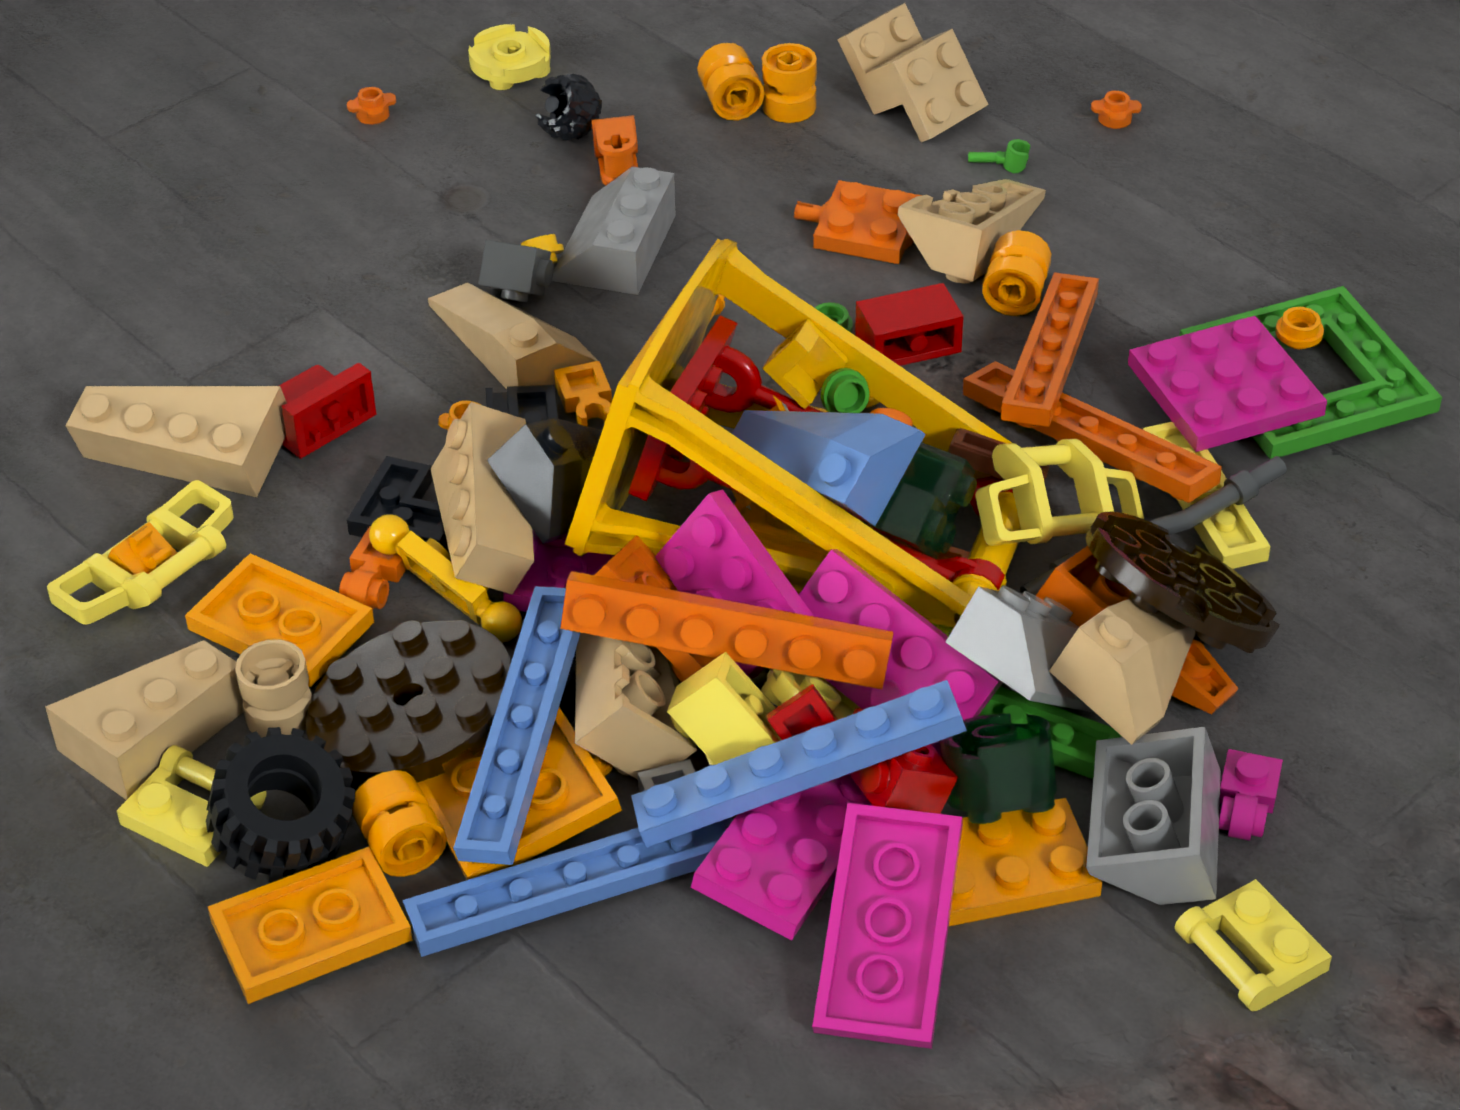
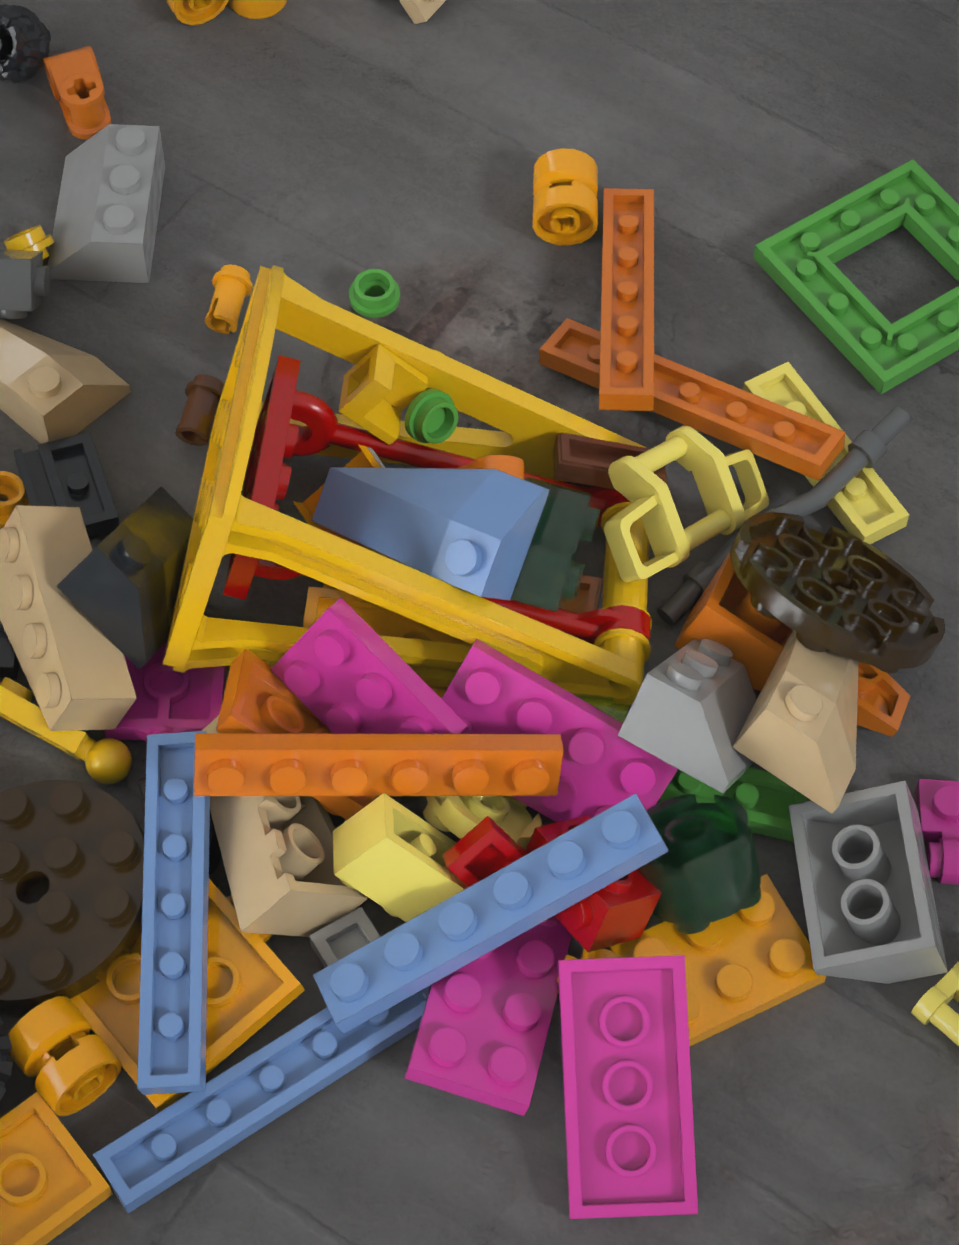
camera: 15 degrees left, 15 degrees up
(584, 391) = (126, 431): light orange plate -> none
(859, 222) = (384, 147): orange plate -> none
(911, 324) = (465, 289): red brick -> none
(963, 227) = (498, 138): tan wedge -> none
(1013, 159) = (523, 35): bright green hand -> none
(1226, 383) = (820, 311): dark pink plate -> none
(1300, 328) = (883, 228): light orange plate -> none

